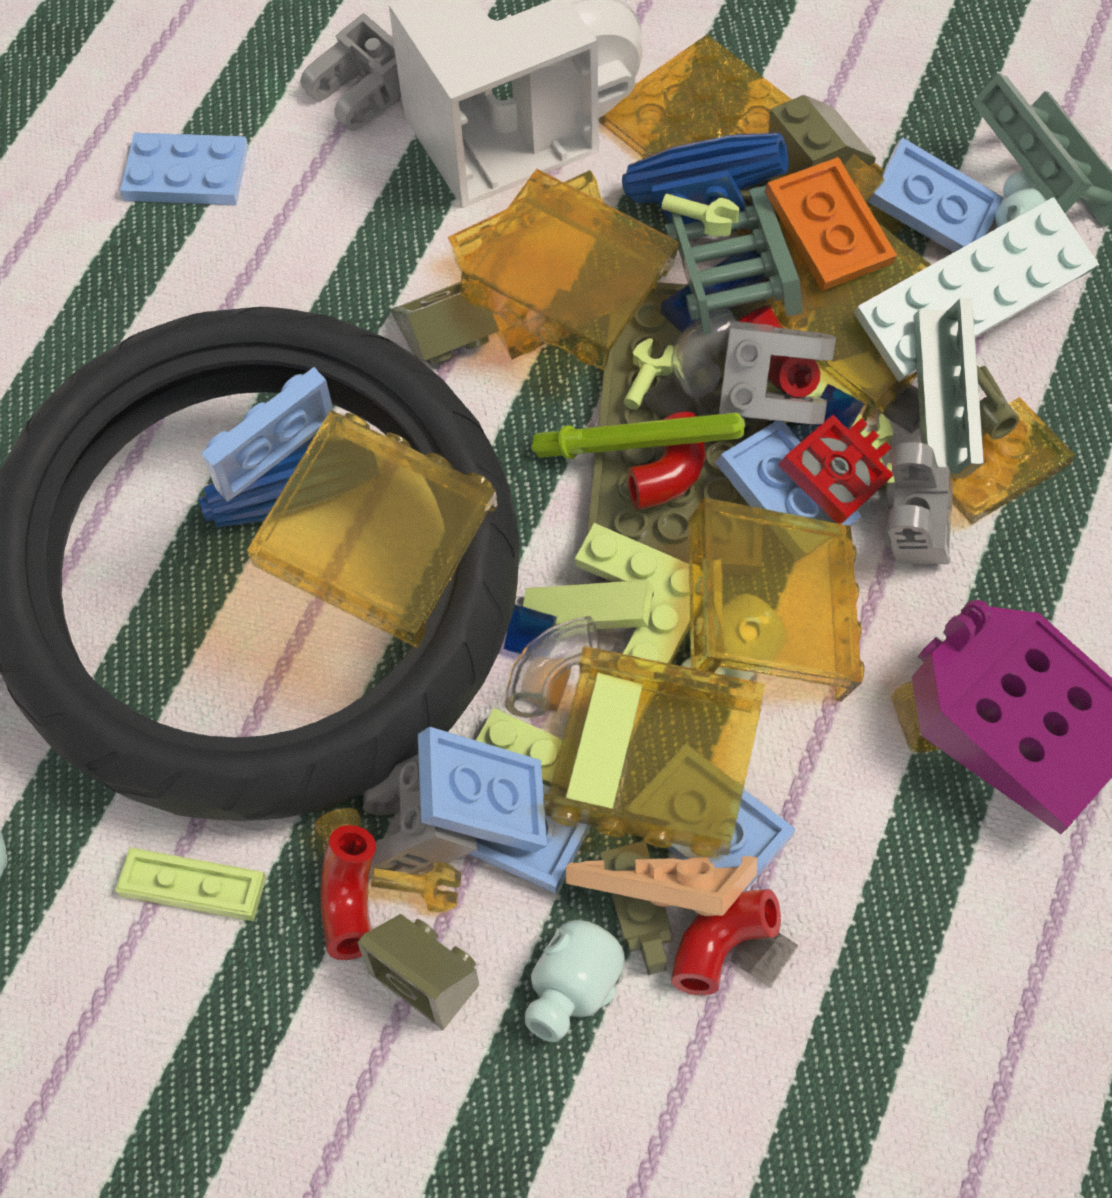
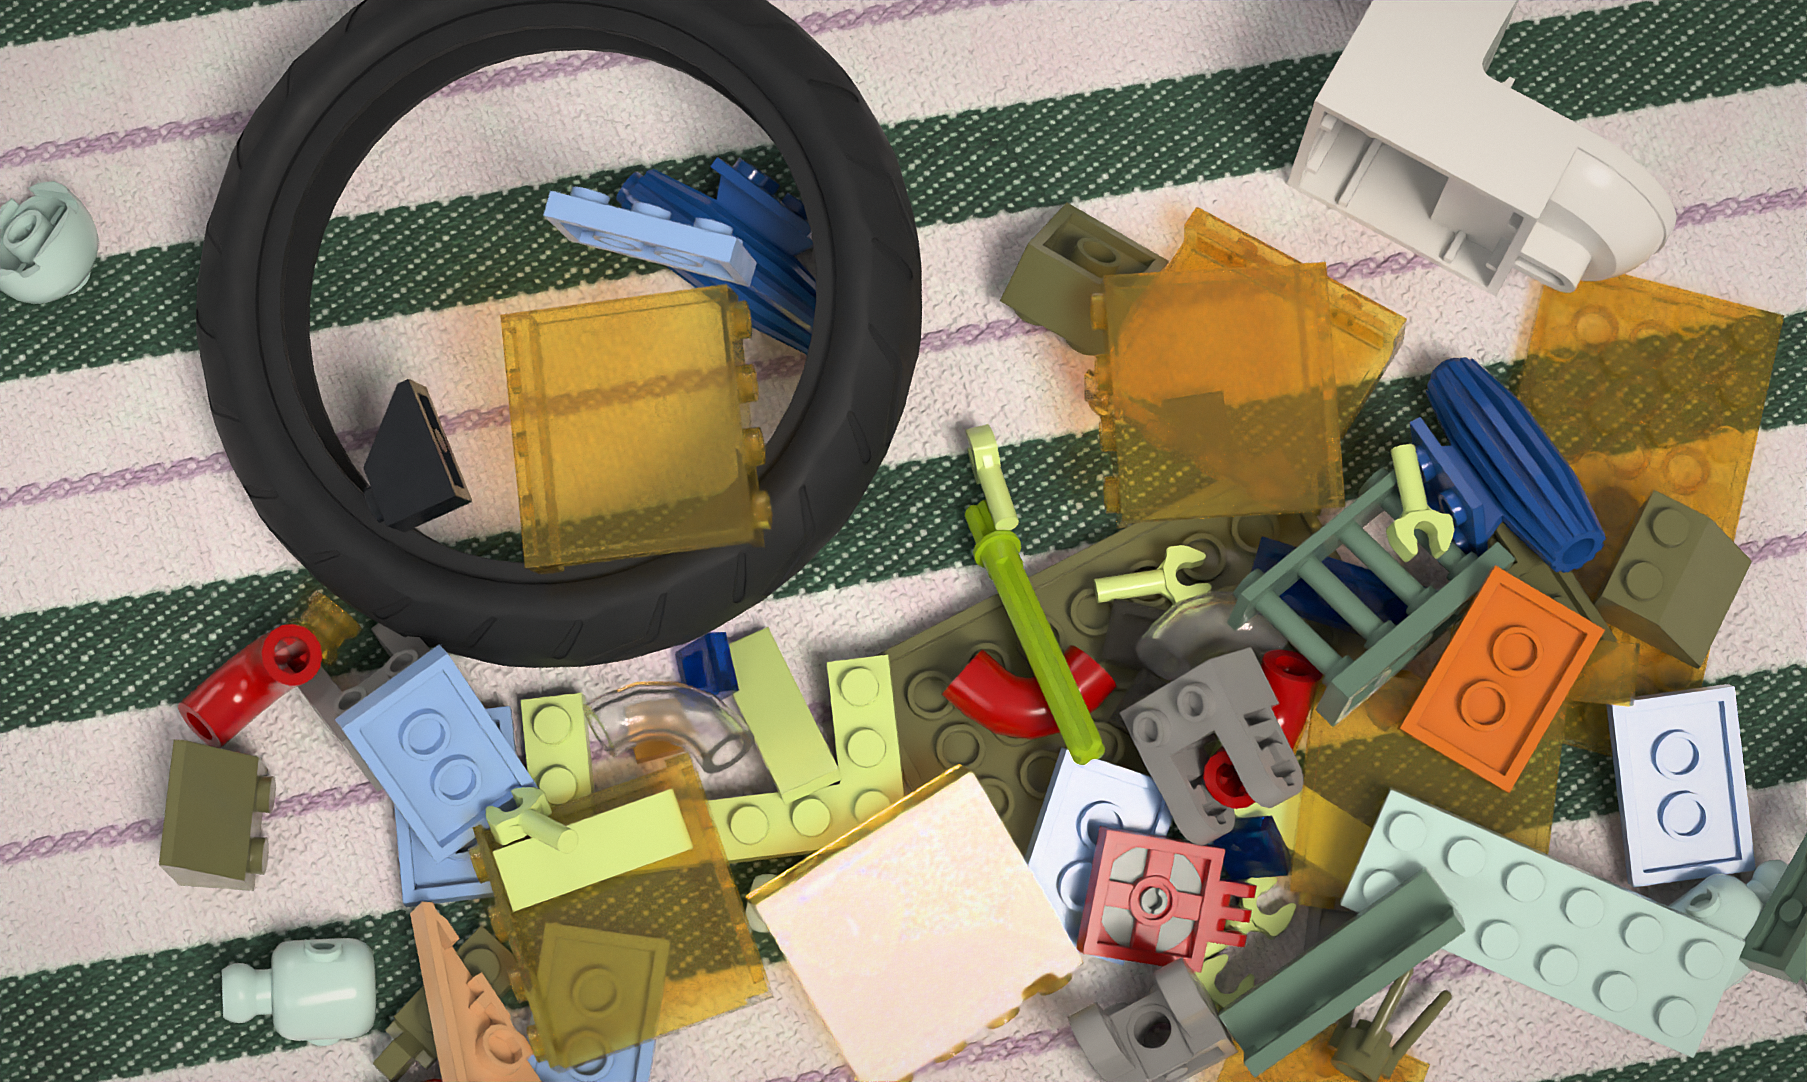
camera: 50 degrees right, 15 degrees up
(191, 884) = (175, 504): yellowish green tile -> none
(297, 670) = (412, 463): none -> black slope
(425, 885) = (327, 774): clear yellow bar -> none
(512, 422) = (987, 472): none -> yellowish green bar
(555, 767) = (532, 820): none -> yellowish green bar

